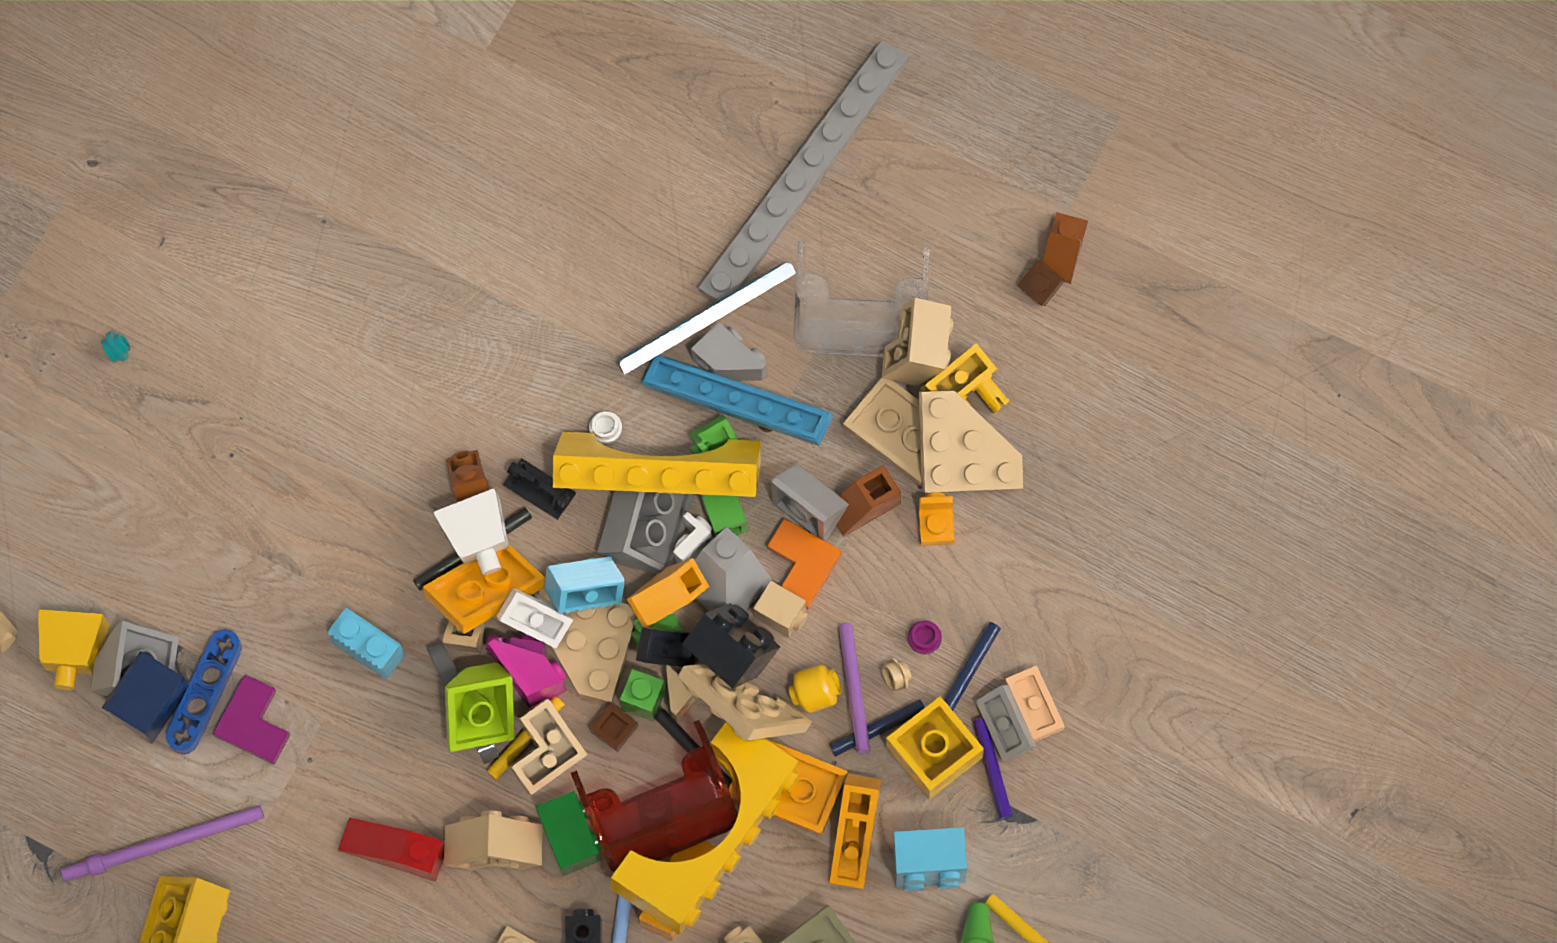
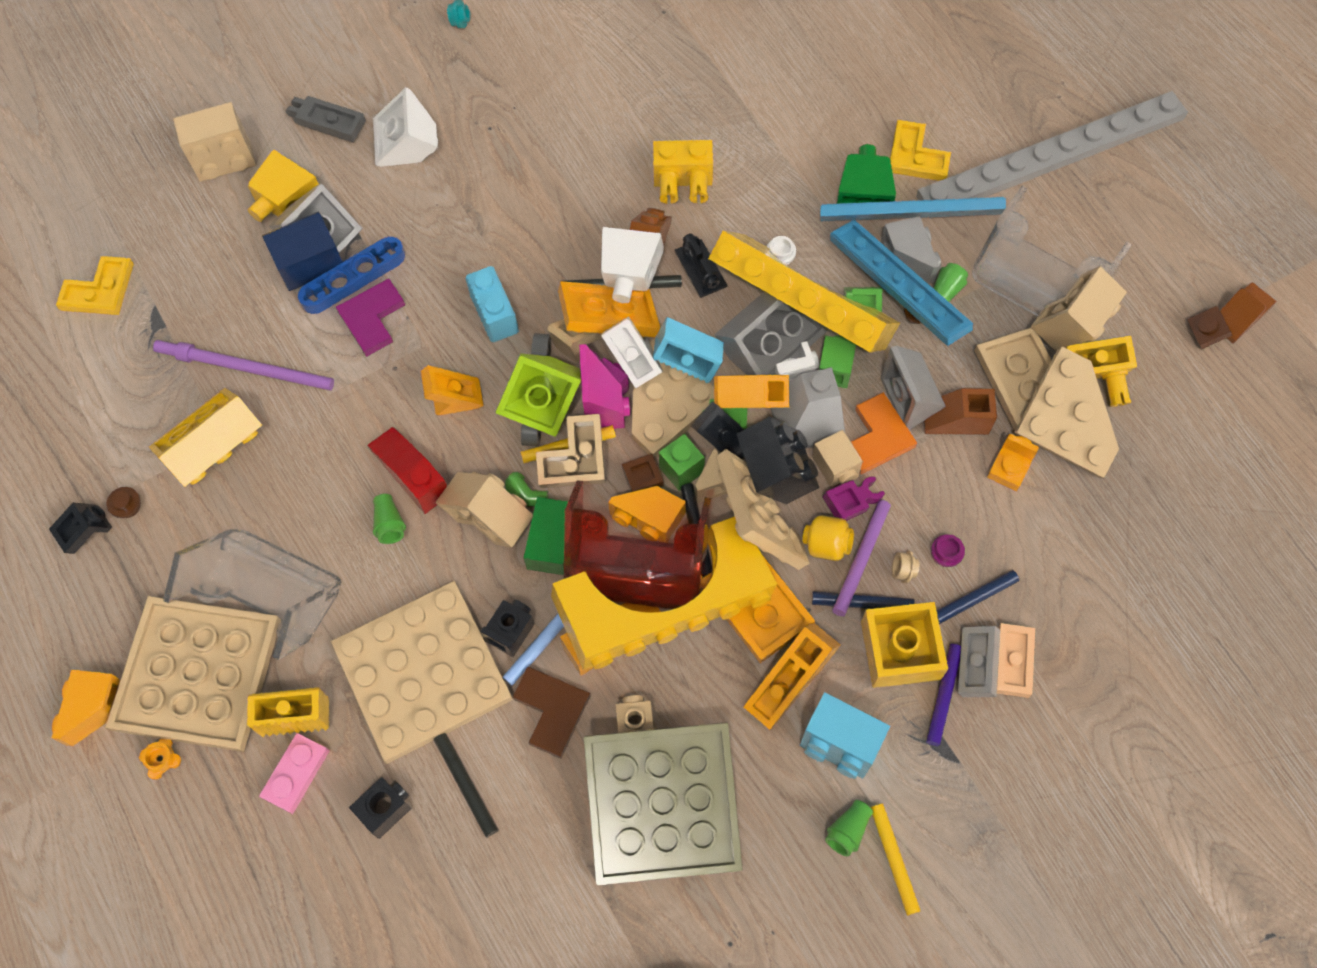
camera: 30 degrees right, 5 degrees down
(59, 541) = (326, 117): none -> dark grey hinge
(151, 513) = (403, 132): none -> white slope
(385, 751) = (451, 390): none -> light orange slope
(408, 908) = (387, 522): none -> bright green cone
(457, 390) = (683, 164): none -> yellow brick
(512, 807) = (516, 485): none -> bright green arm
(642, 757) = (650, 511): none -> light orange slope
(645, 307) = (867, 178): none -> green torso
(672, 254) = (911, 158): none -> yellow tile
(783, 373) = (951, 281): none -> bright green cone
(814, 641) = (851, 501): none -> magenta plate

